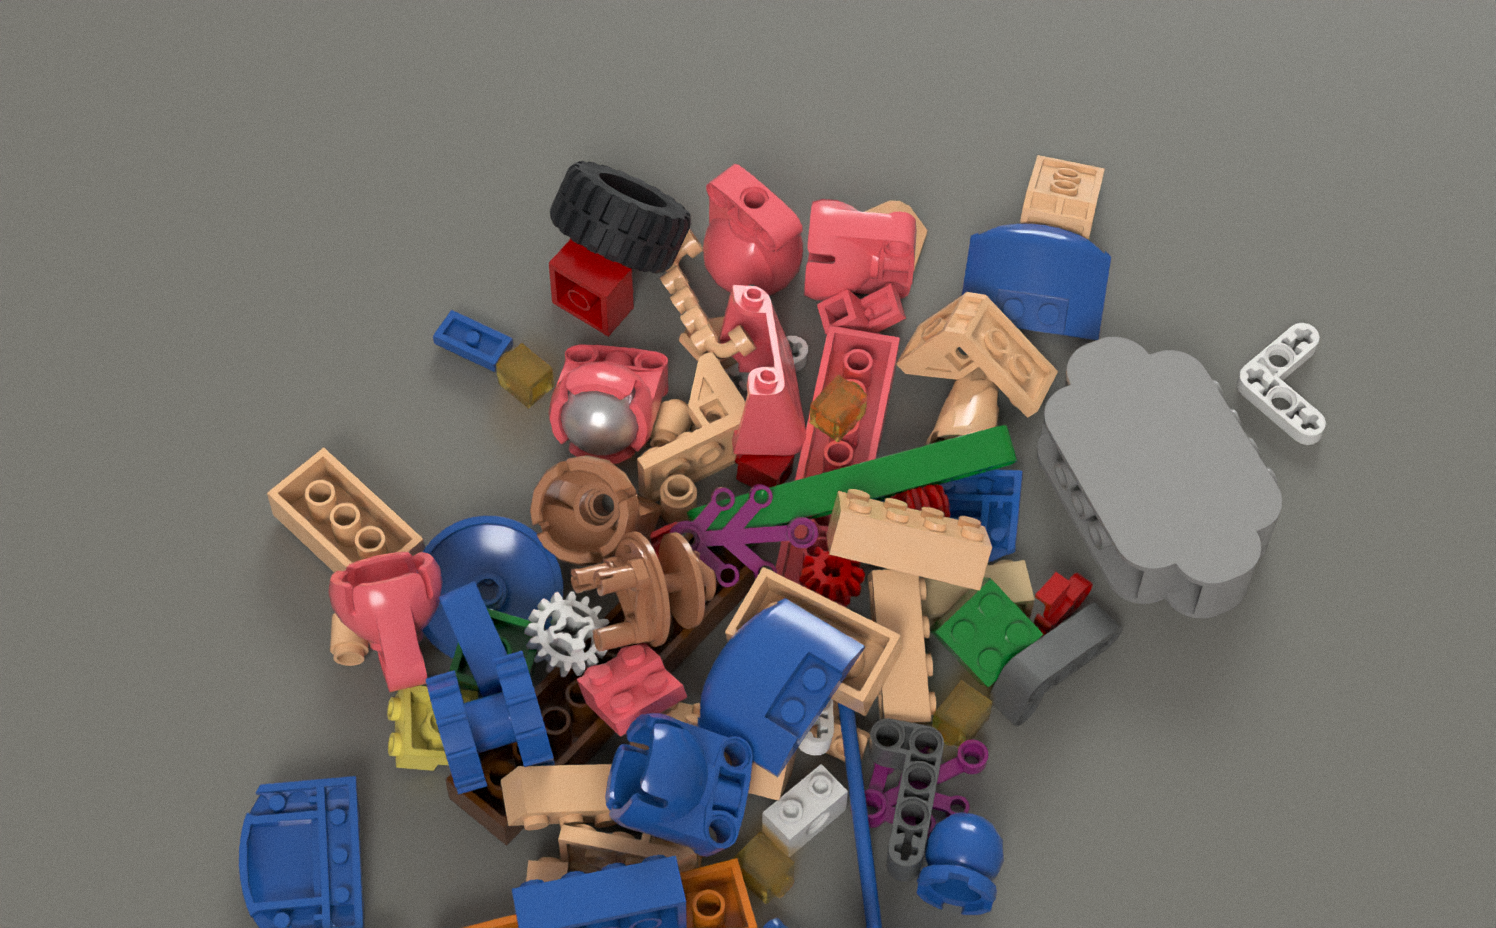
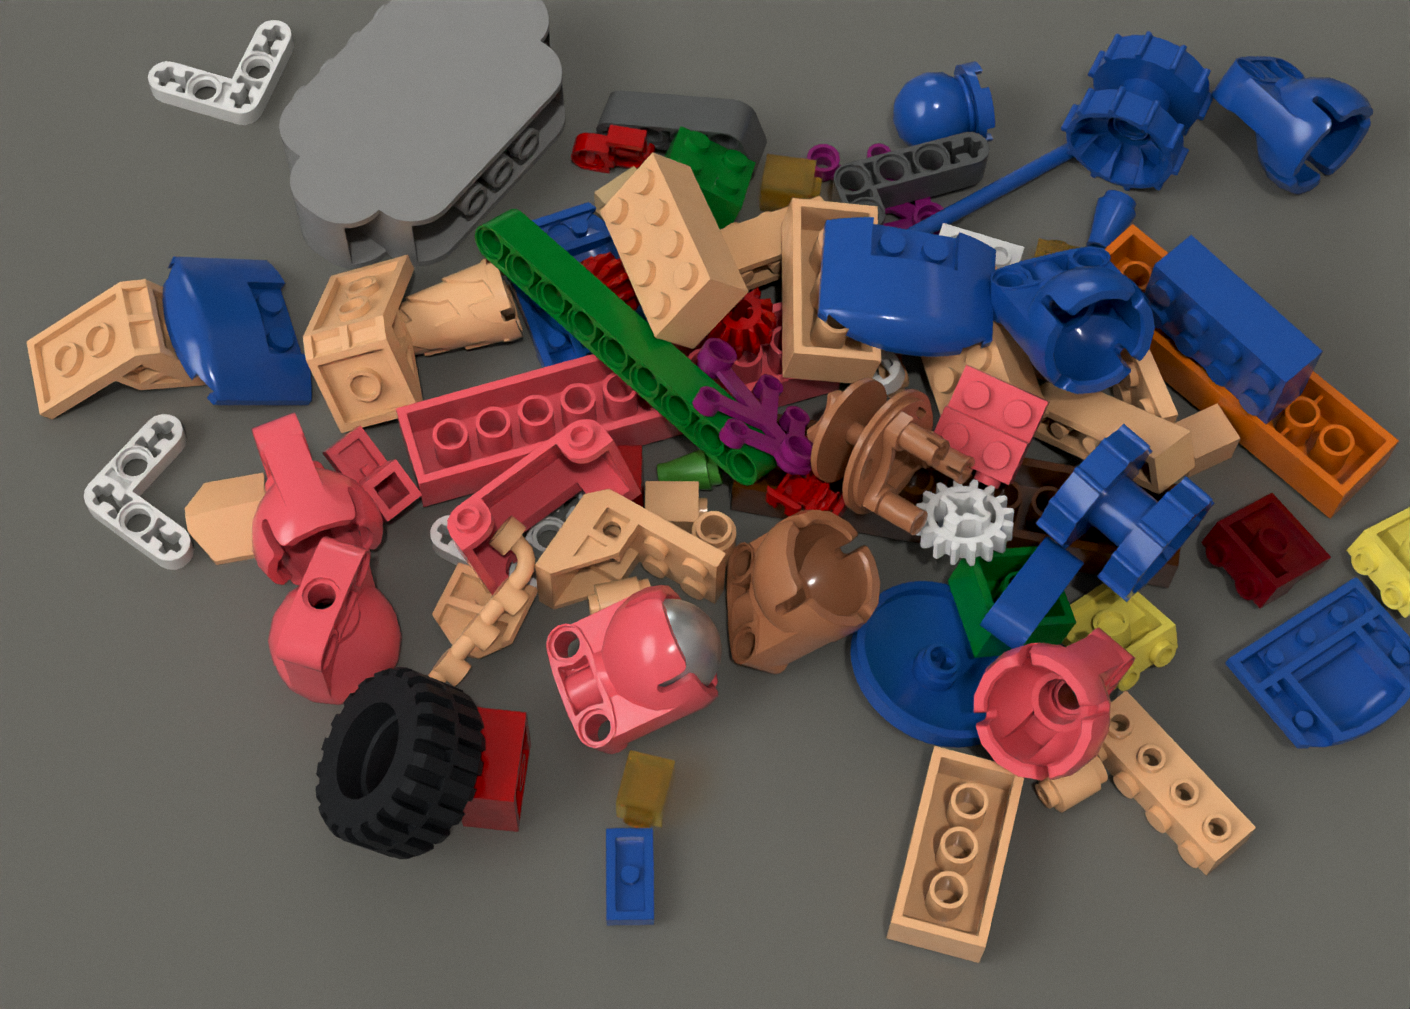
camera: 120 degrees left, 5 degrees up
(304, 695) = (1171, 787): none -> light nougat brick
(427, 878) = (1264, 550): none -> dark red plate
(722, 475) = (675, 502): none -> light nougat brick
(838, 408) = (532, 408): clear yellow brick -> none
(946, 183) = (128, 489): none -> white beam

